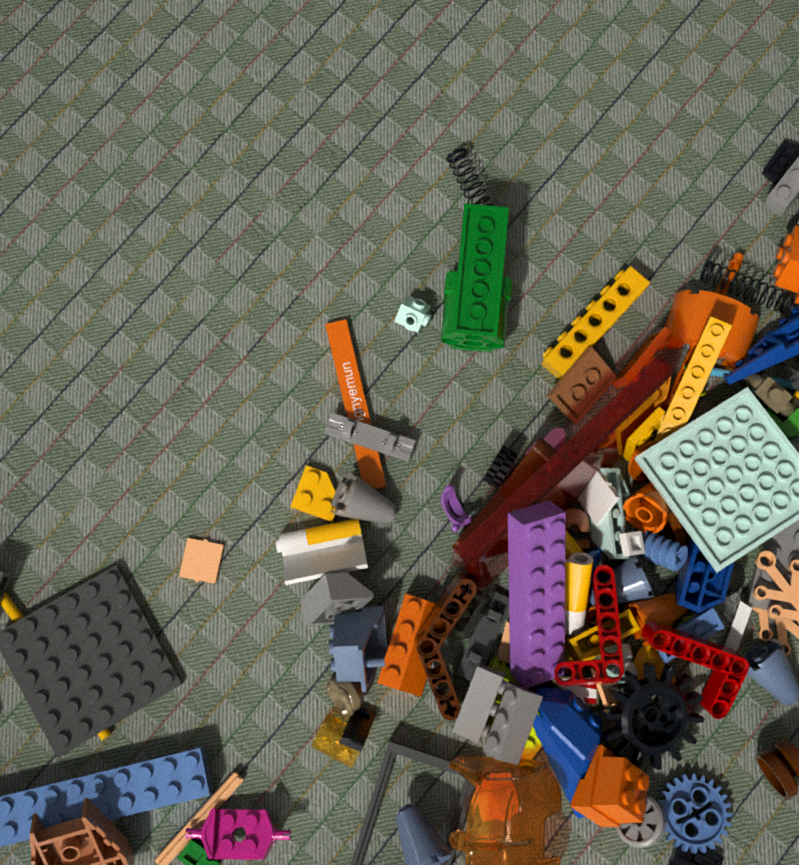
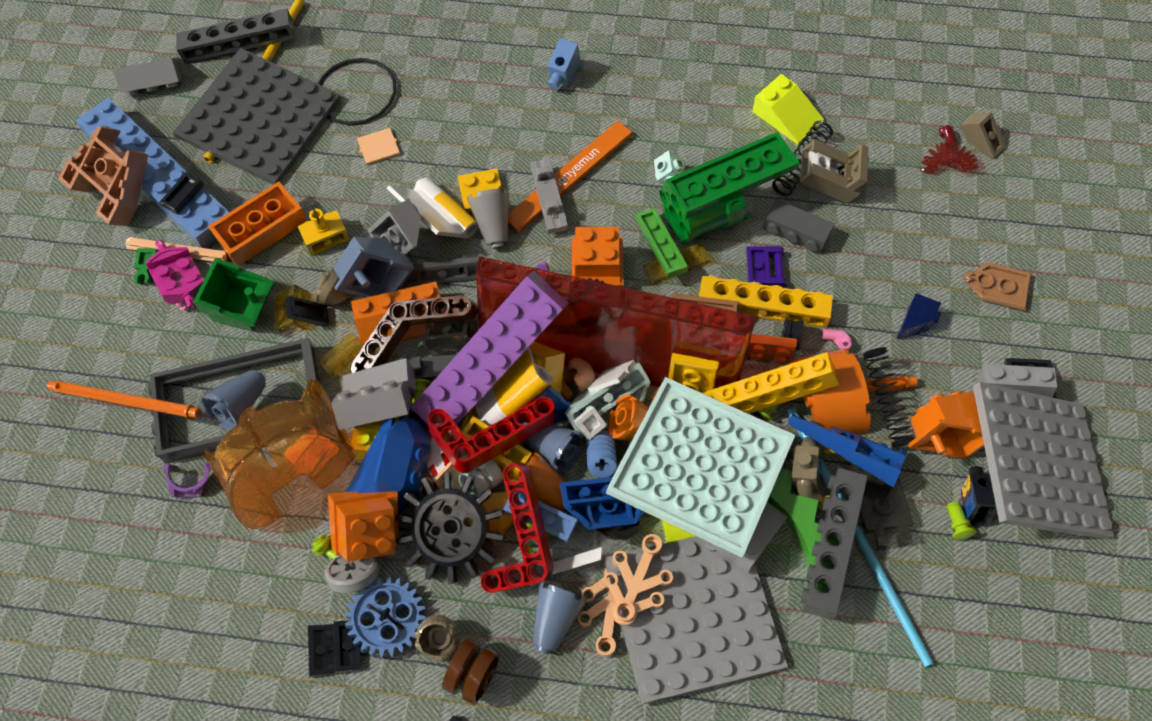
camera: 60 degrees right, 15 degrees down
(122, 501) = (369, 61): none -> black piece
(151, 785) = (181, 193): none -> black tile
(227, 327) = (563, 63): none -> medium blue torso
(227, 726) = (258, 223): none -> orange slope
(273, 667) = (323, 231): none -> yellow brick
(306, 788) = (233, 295): none -> green piece
(393, 571) = (442, 271): none -> dark grey hinge
(415, 169) = (786, 109): none -> neon yellow slope
(422, 719) = (341, 355): none -> clear yellow bracket
(471, 439) = (598, 254): none -> orange piece
(485, 370) = (661, 243): none -> bright green plate
(508, 371) = (694, 257): none -> clear yellow tile
(513, 176) = (834, 171): none -> dark tan brick
(534, 57) = (949, 134): none -> dark red arm
(541, 245) = (798, 226): none -> dark grey brick
(548, 28) = (983, 133): none -> dark tan slope
(551, 72) = (949, 157): none -> clear red hair
(558, 304) = (758, 265): none -> dark purple plate
(595, 833) = (322, 545): none -> lime plate
(641, 321) = (793, 329): none -> black wheel
(664, 285) = (840, 338): none -> bright pink arm
(686, 211) = (919, 316): none -> clear blue slope
(695, 125) = (1000, 285): none -> medium nougat tile
(738, 779) = (437, 637): none -> dark tan hair

